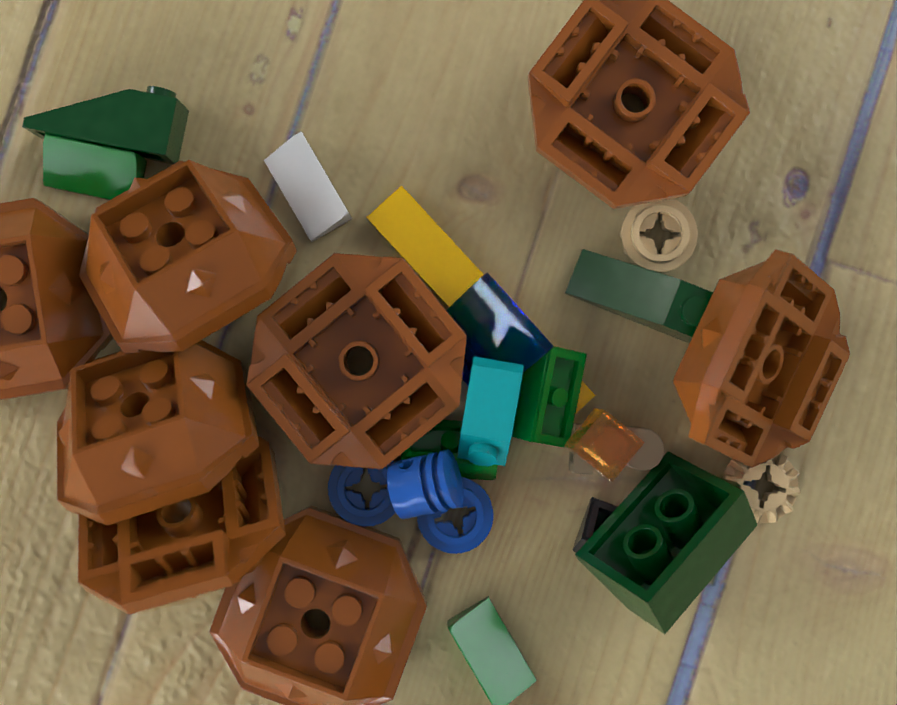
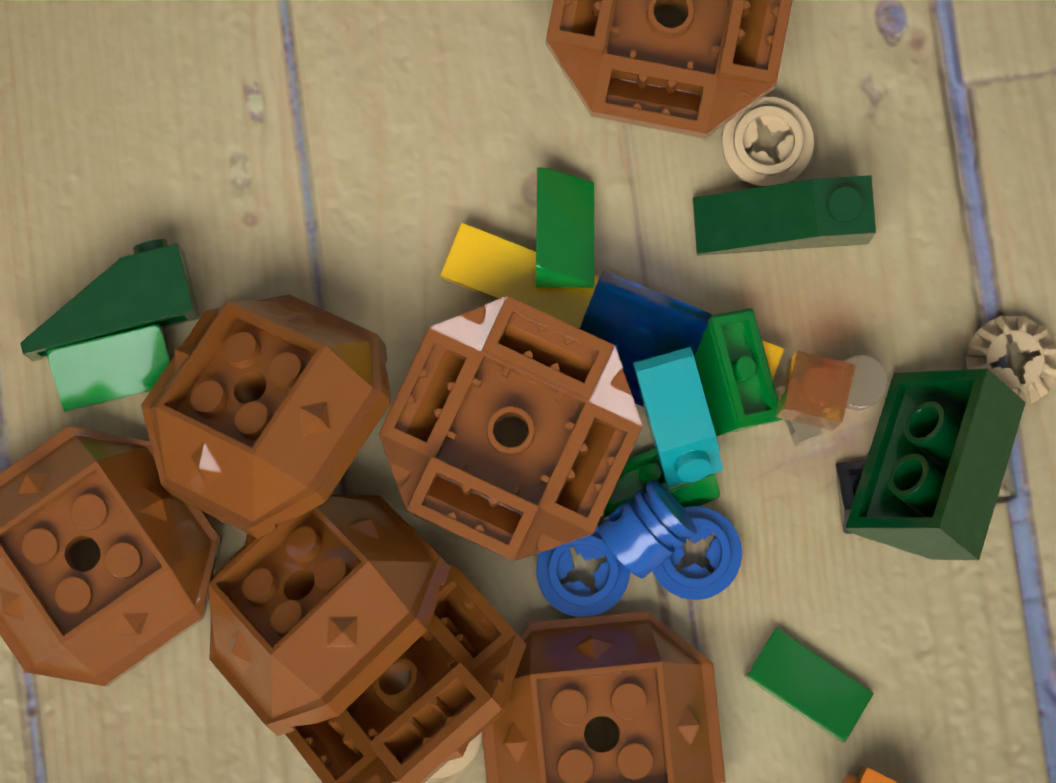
camera: 30 degrees left, 5 degrees down
(307, 187) = (359, 273): white slope -> none
(473, 228) = (564, 230): none -> green slope
(763, 360) = (944, 224): dark orange piece -> none

